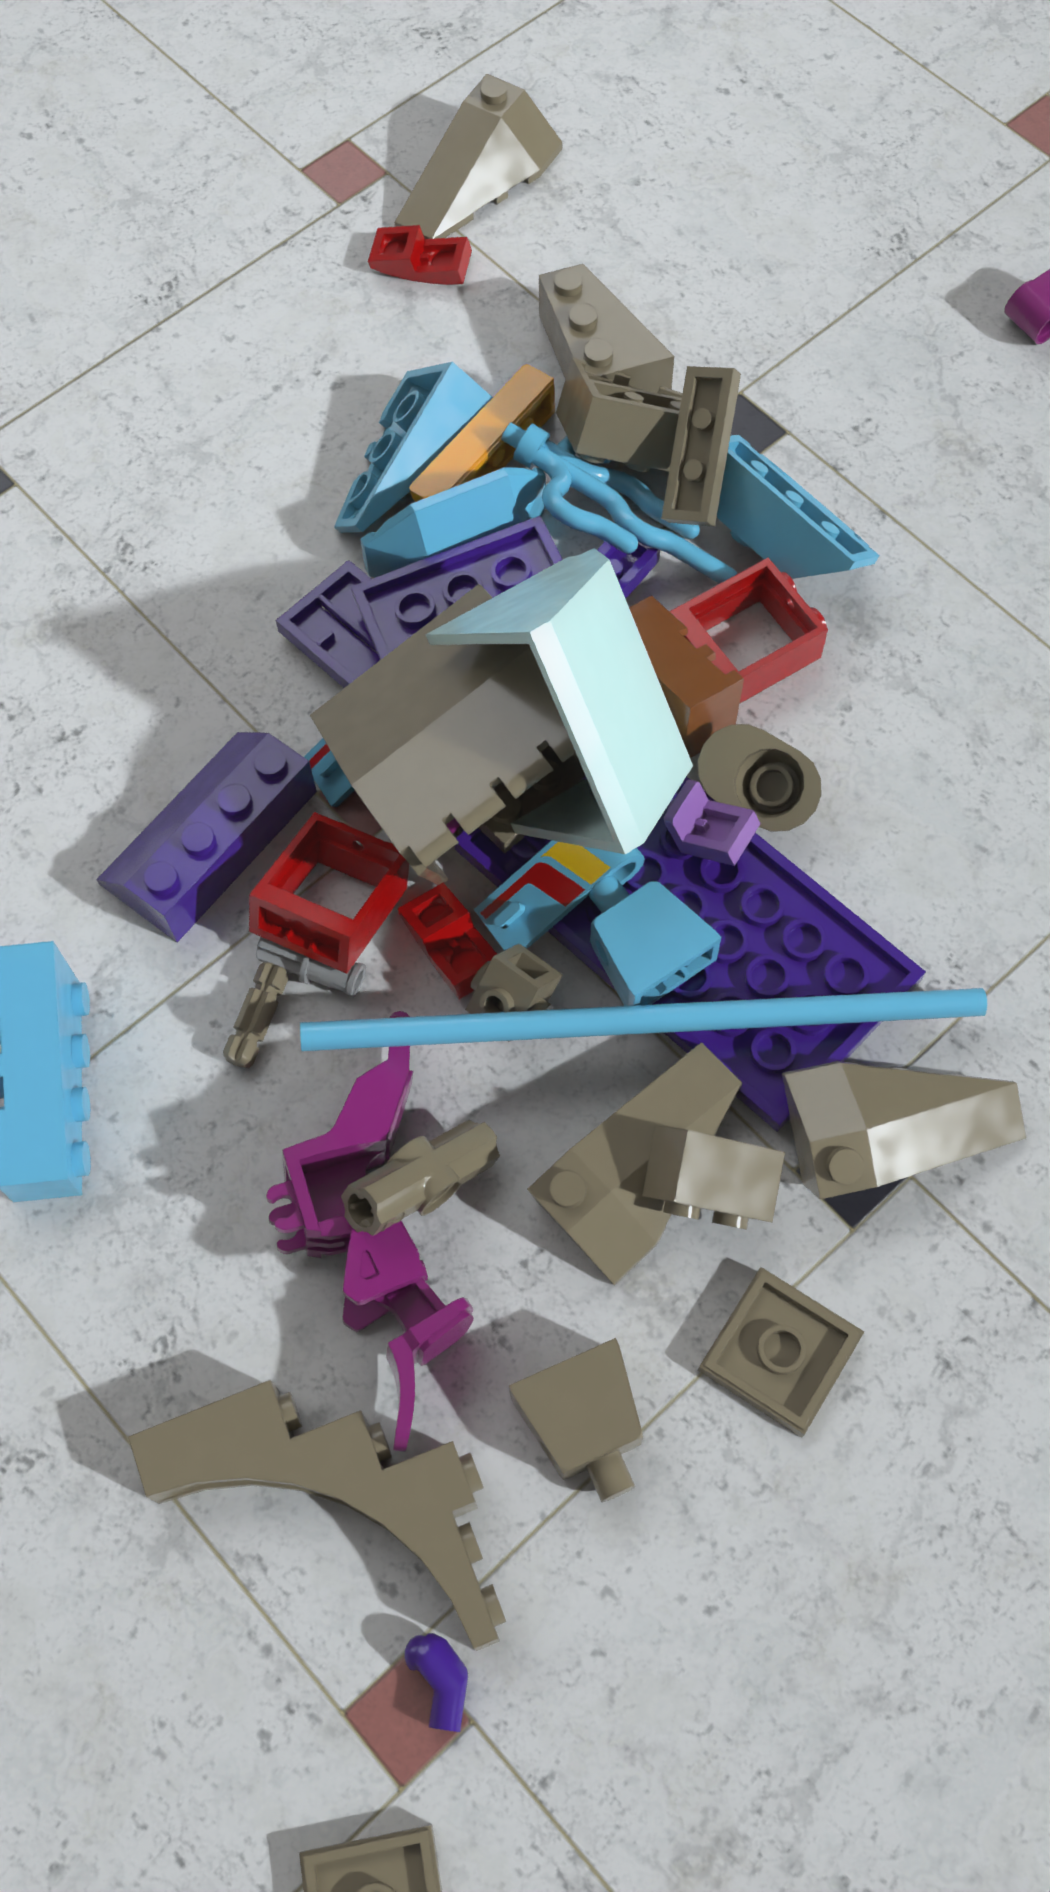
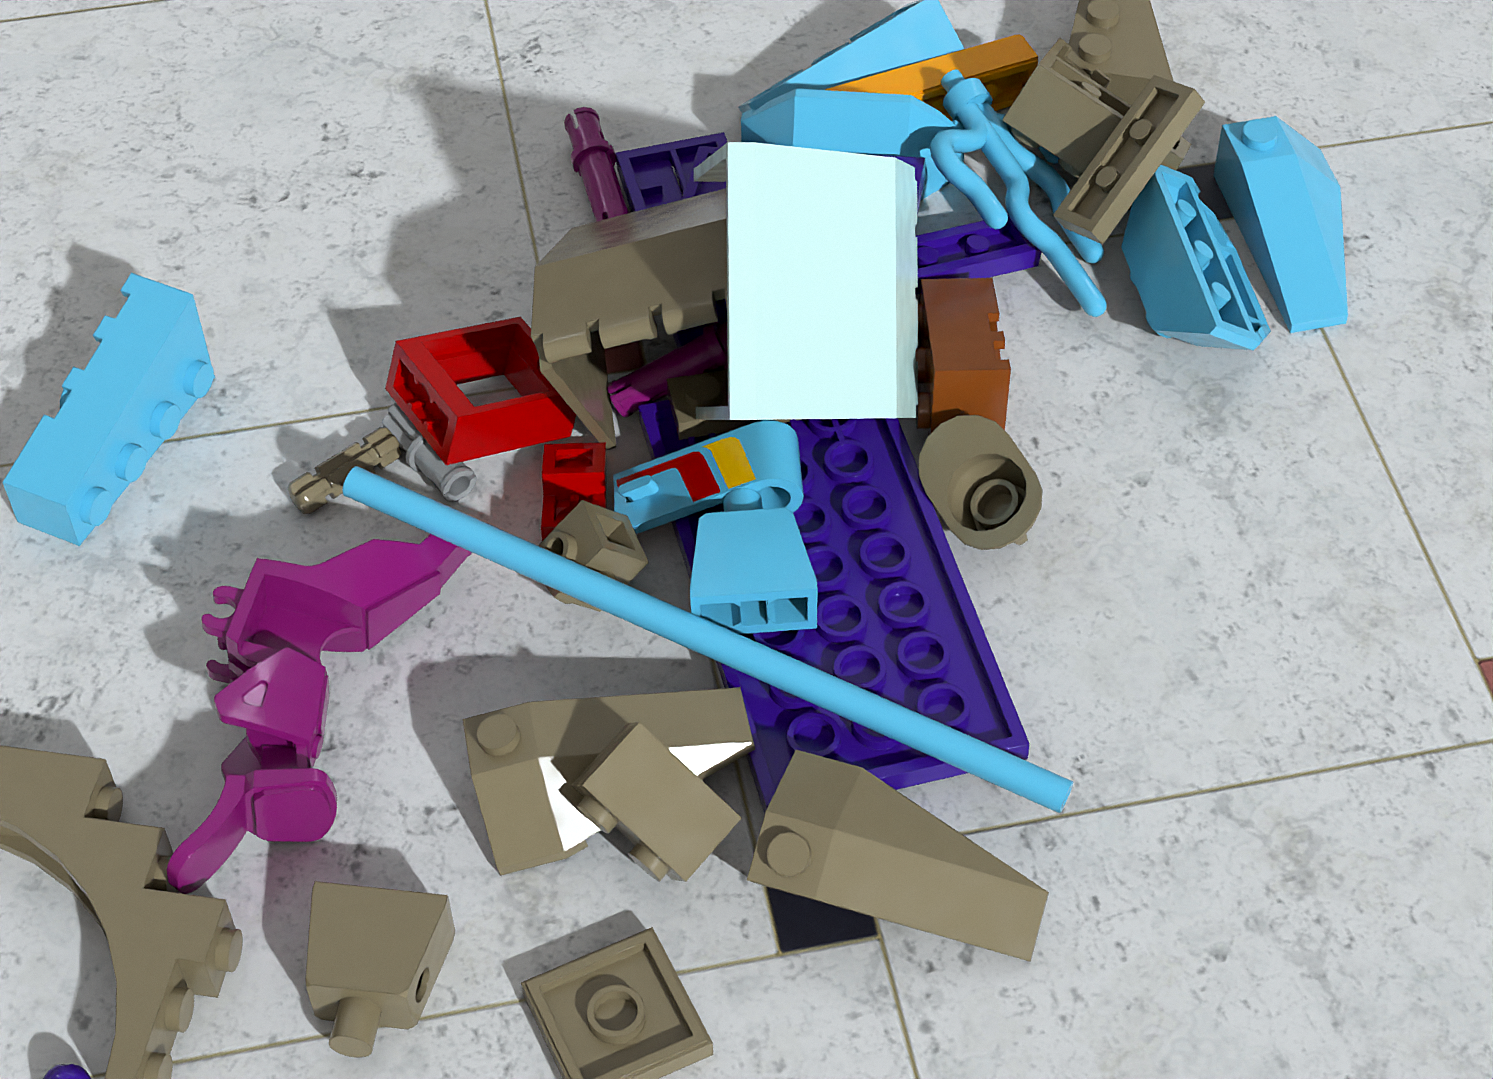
camera: 30 degrees right, 15 degrees down
(211, 832) = (361, 318): dark purple slope -> none
(259, 634) = (595, 164): none -> magenta pin
(419, 1177) = (372, 657): dark tan piece -> none
(709, 827) = (887, 496): medium lavender bracket -> none
(780, 597) = (1079, 324): red window -> none
(814, 435) = (1288, 216): none -> medium azure wedge

